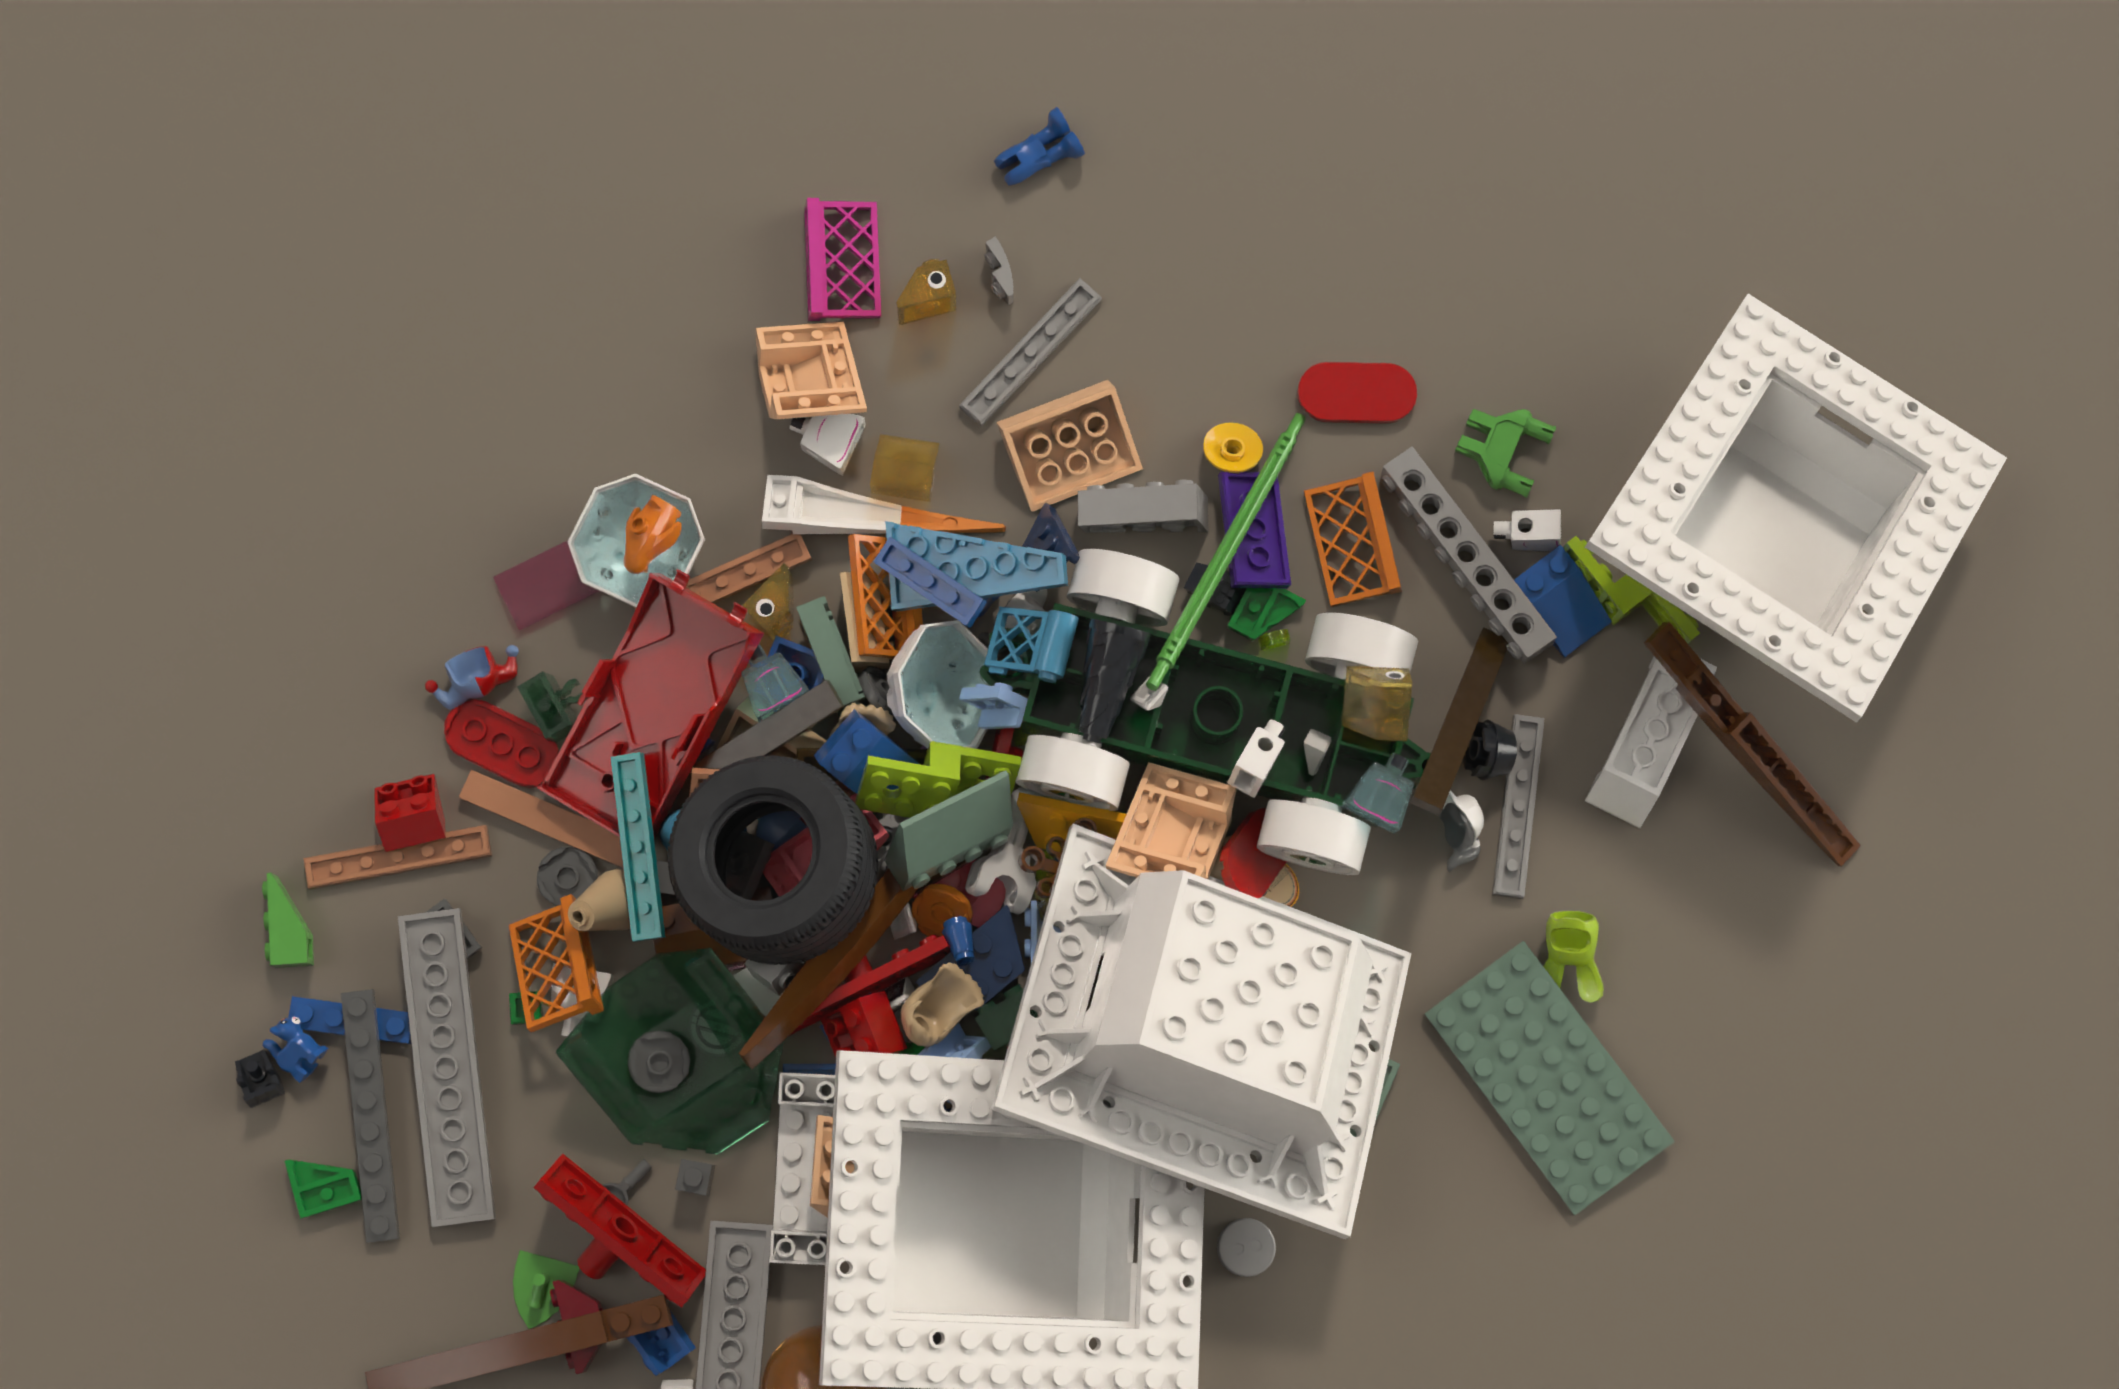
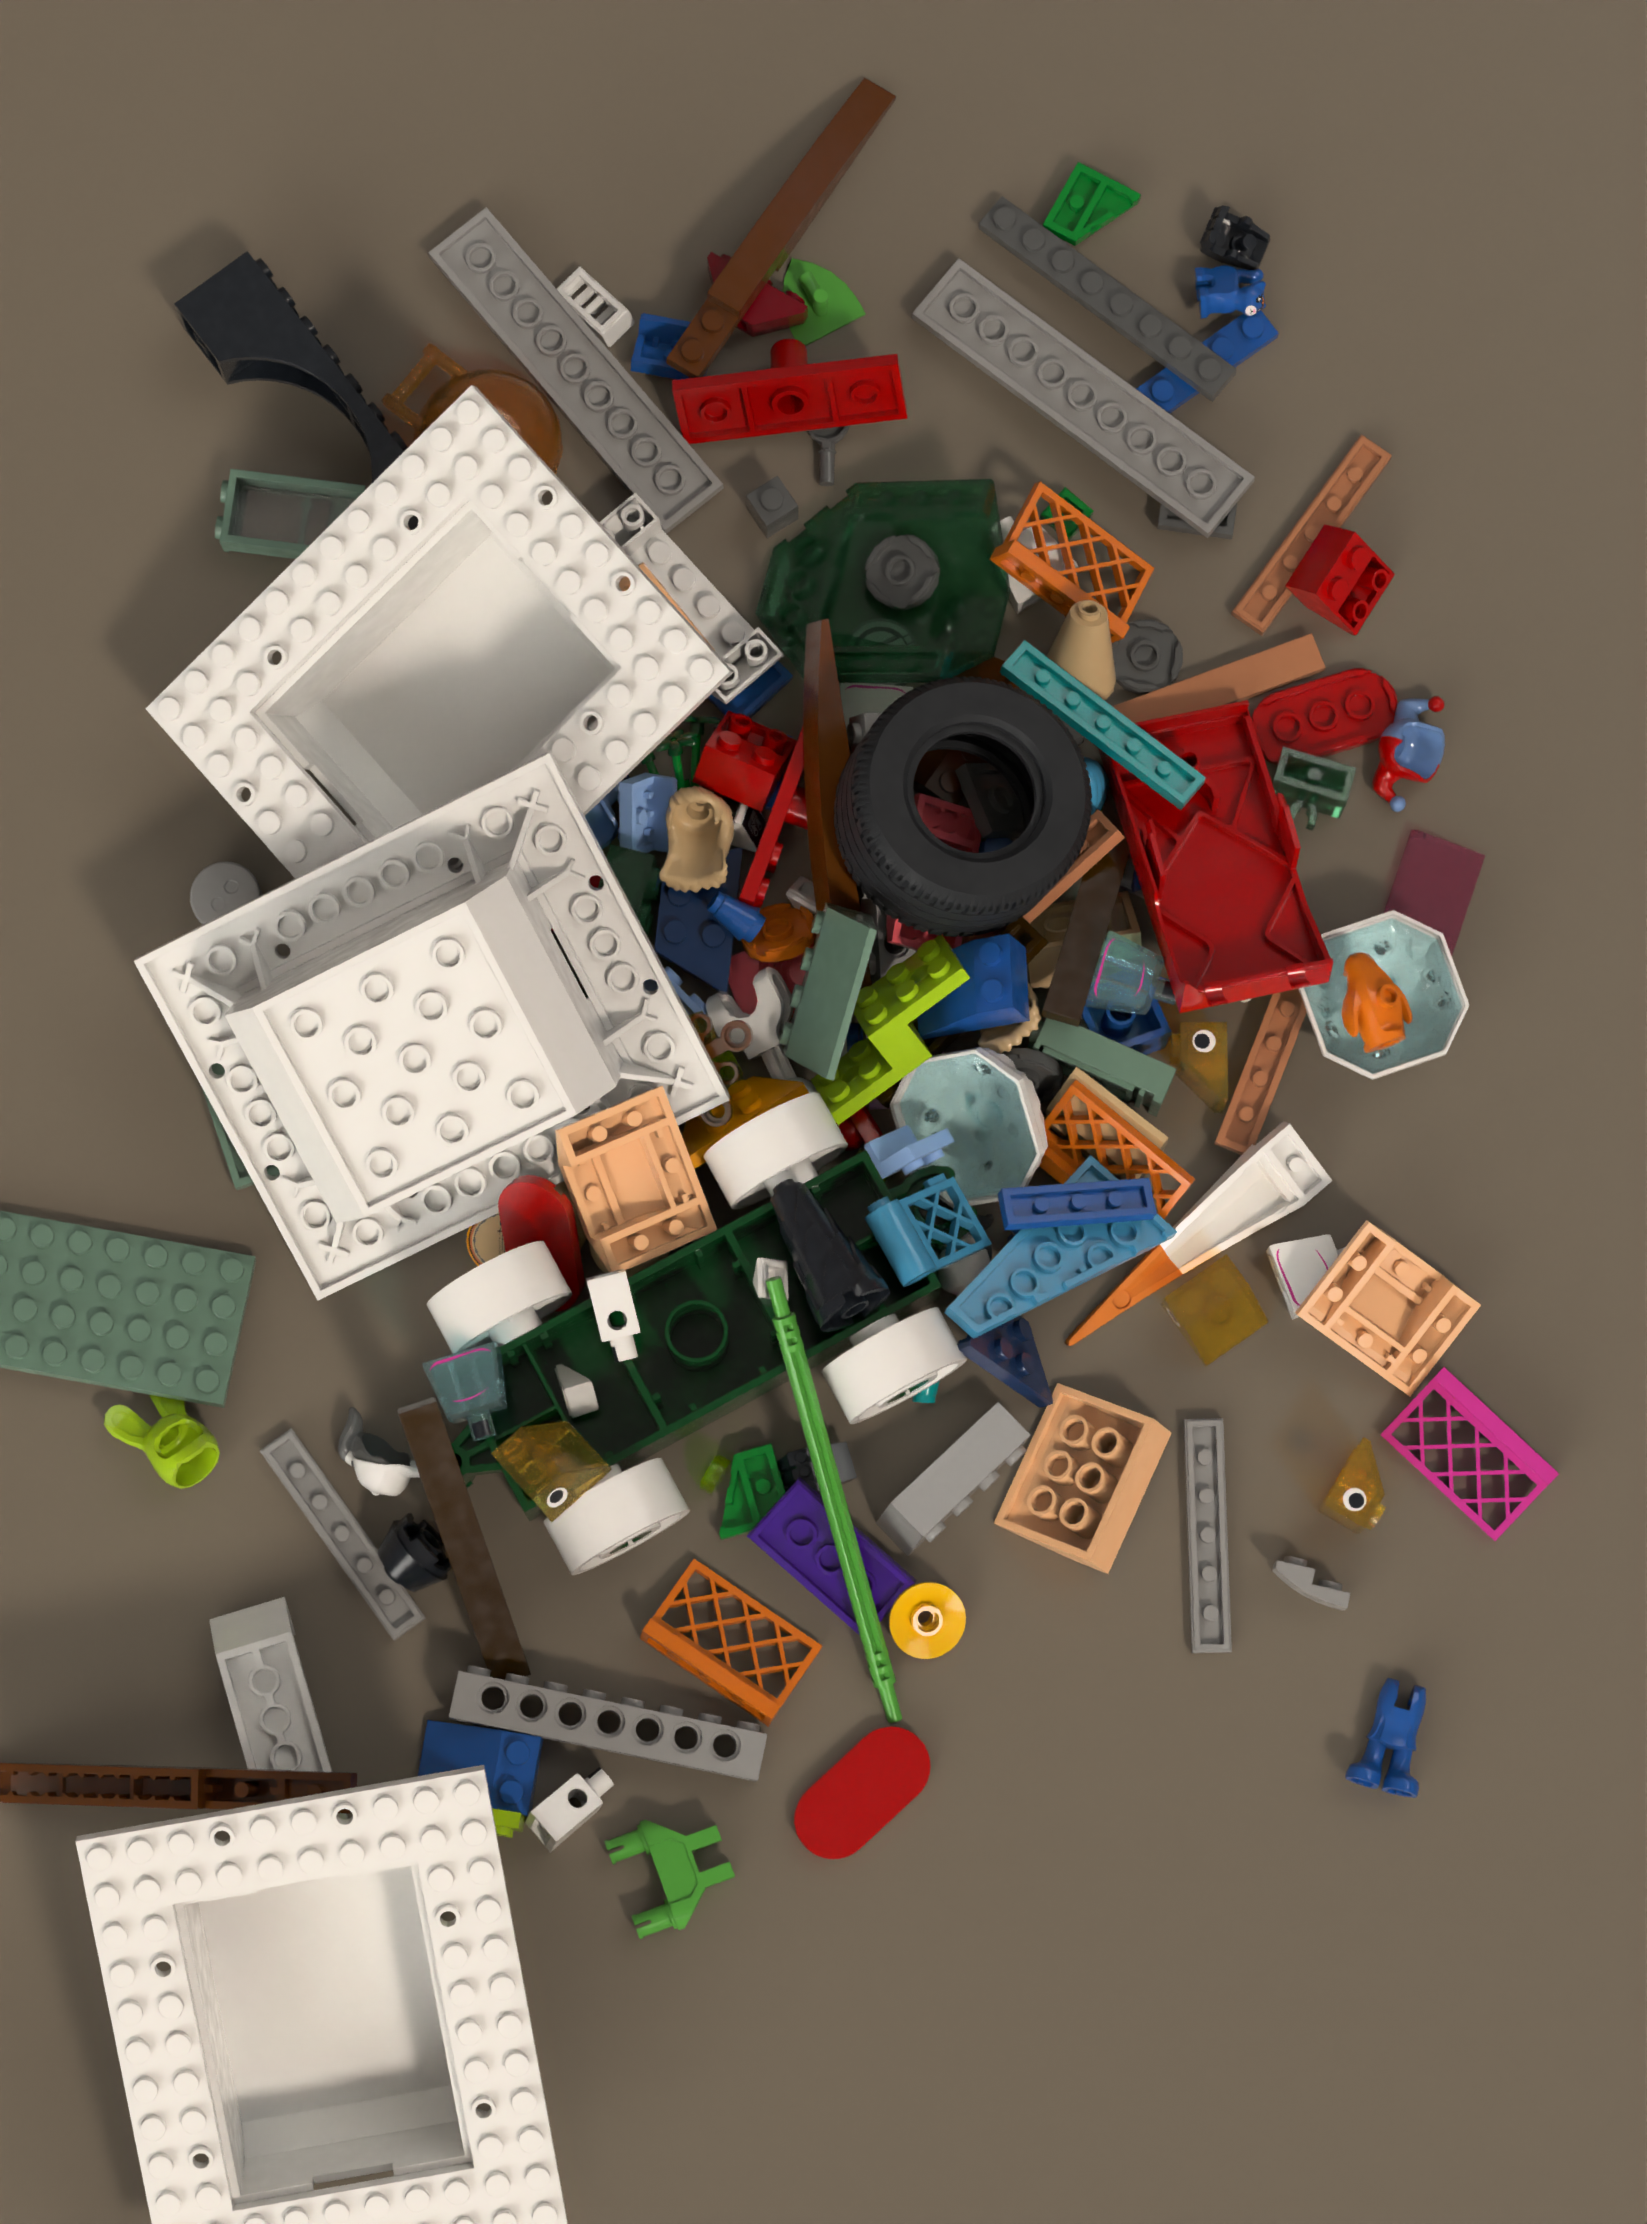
camera: 140 degrees right, 0 degrees up
(289, 935) = (1338, 382): bright green slope -> none

